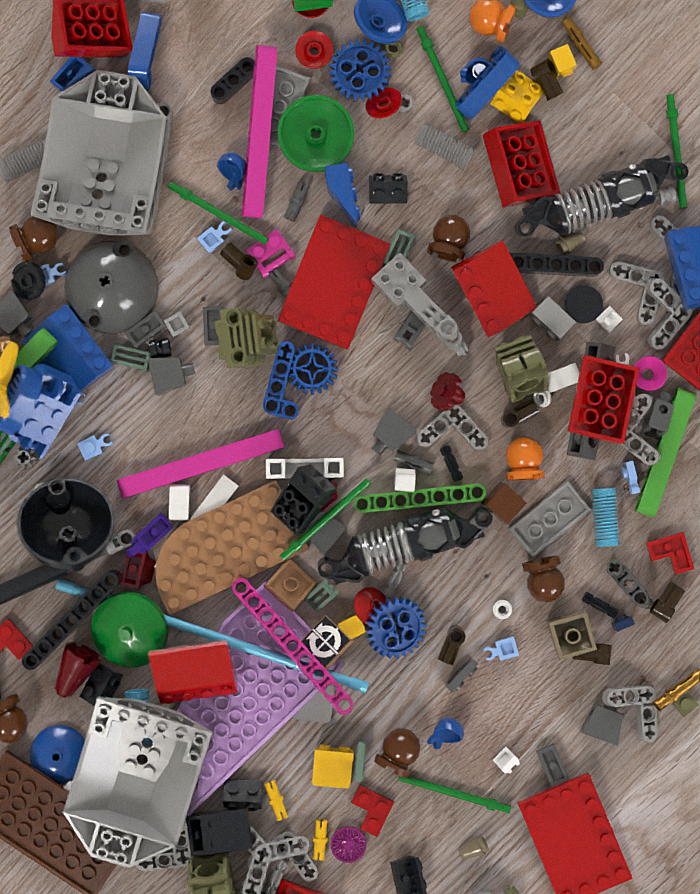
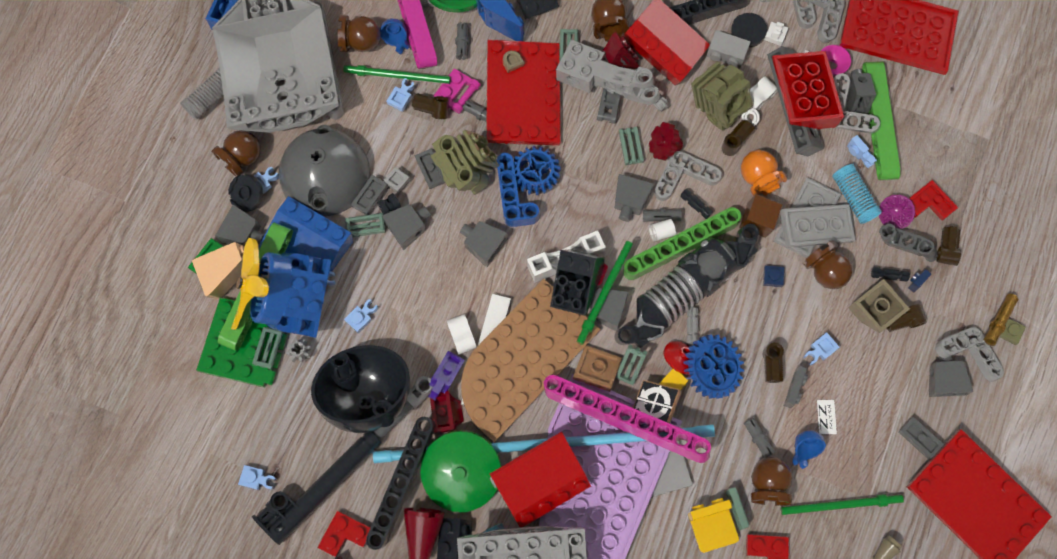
camera: 15 degrees left, 15 degrees down
(196, 156) = (359, 33): none -> reddish brown tile
(200, 463) = (466, 292): dark pink beam -> none
(234, 420) = (483, 241): none -> dark grey torso
(335, 247) = (512, 61): none -> dark tan tile
(408, 705) = (759, 437): none -> dark grey pin
(418, 363) = (628, 131): none -> sand green tile
(443, 285) = (620, 52): none -> dark red slope
(479, 710) = (826, 417): none -> white sticker
(491, 562) = (773, 276): none -> dark blue plate
(506, 760) = (875, 451): white tile -> none
(508, 611) = (807, 309): white plate -> none
(552, 534) = (817, 225): none -> light grey tile
(635, 549) = (897, 211): none -> magenta wheel

